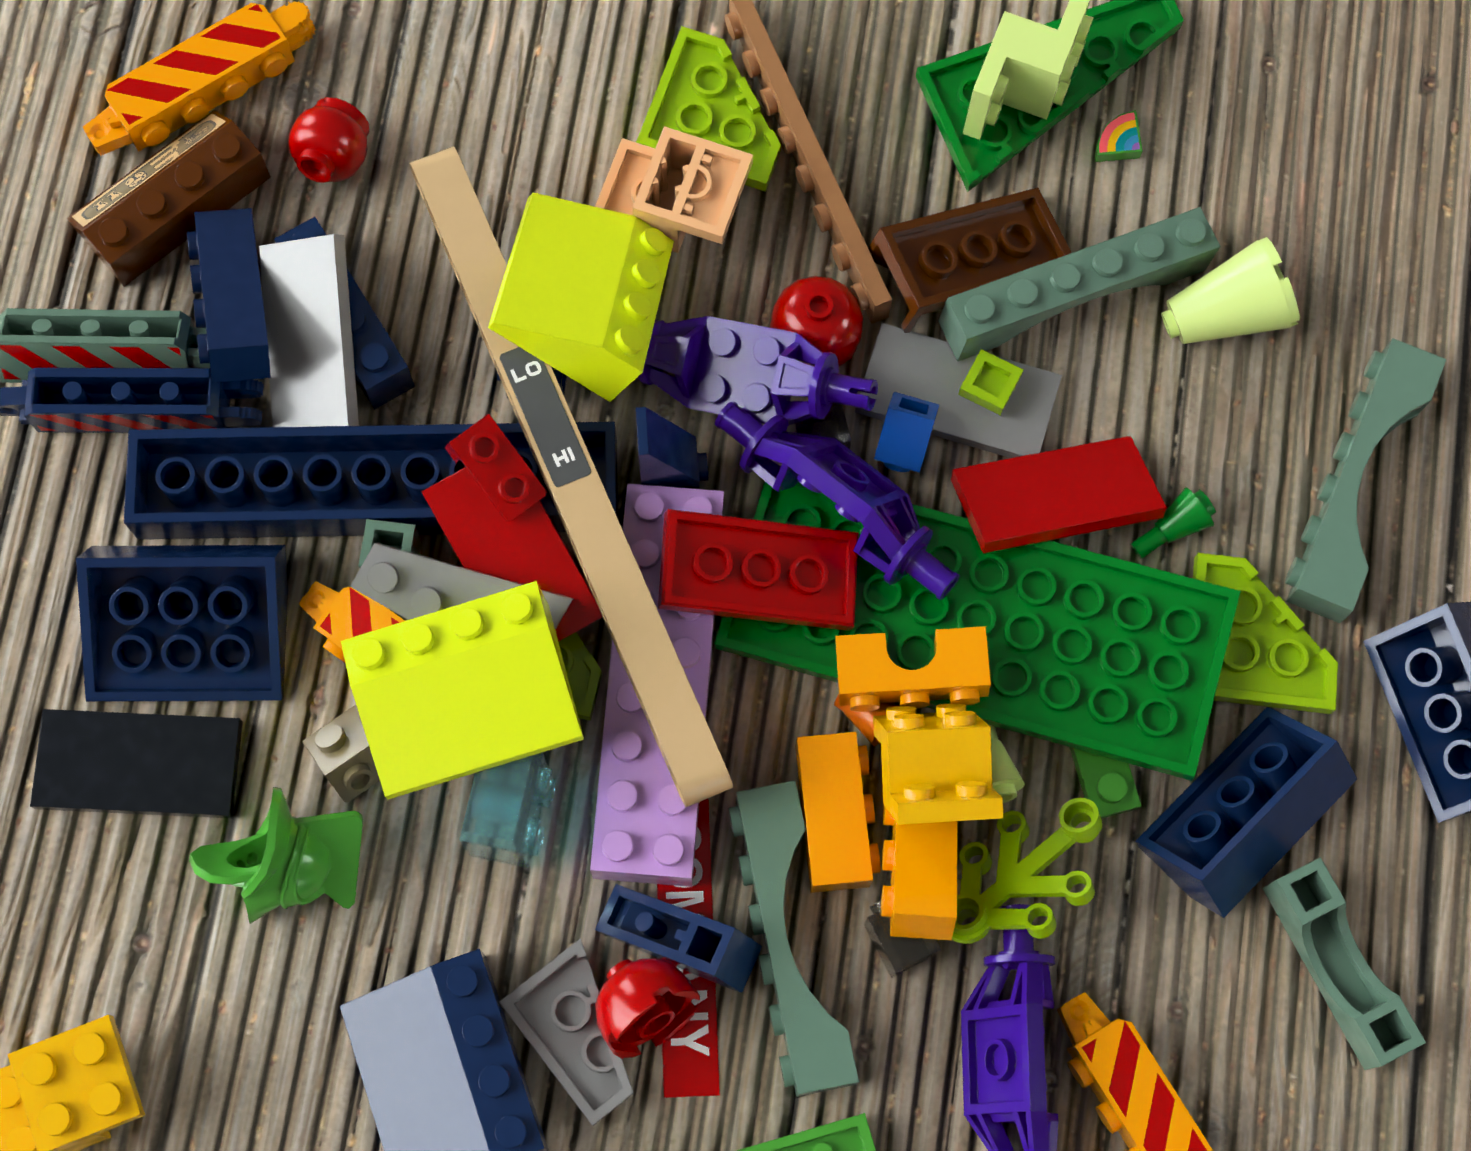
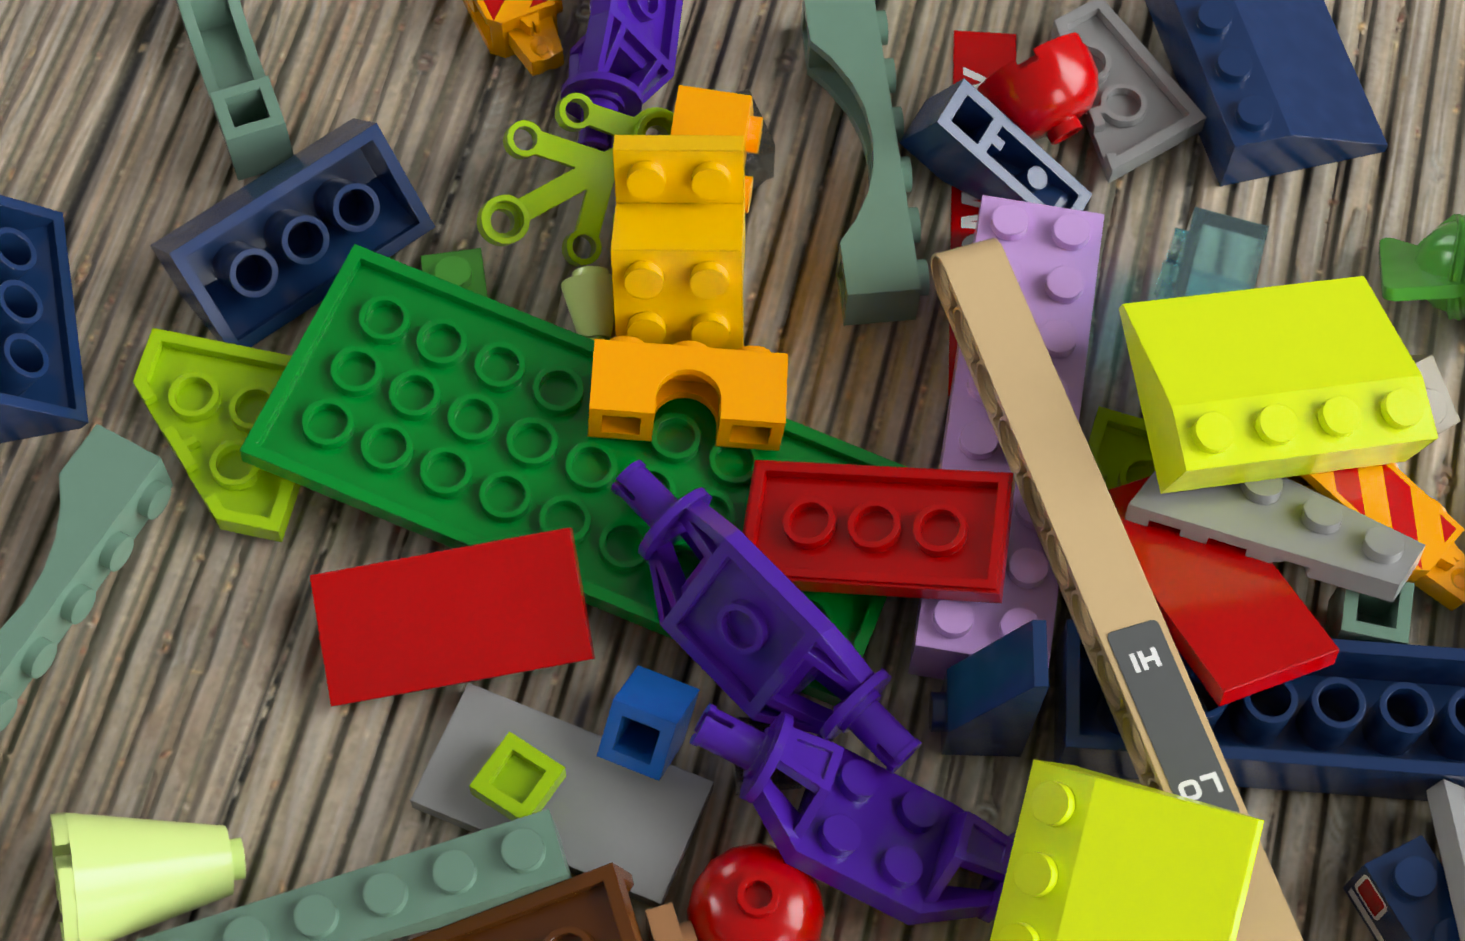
camera: 175 degrees left, 10 degrees down
(497, 468) = (1249, 668): red bracket -> none
(836, 812) = (798, 274): light orange brick -> none
(1184, 517) = (283, 586): green cone -> none

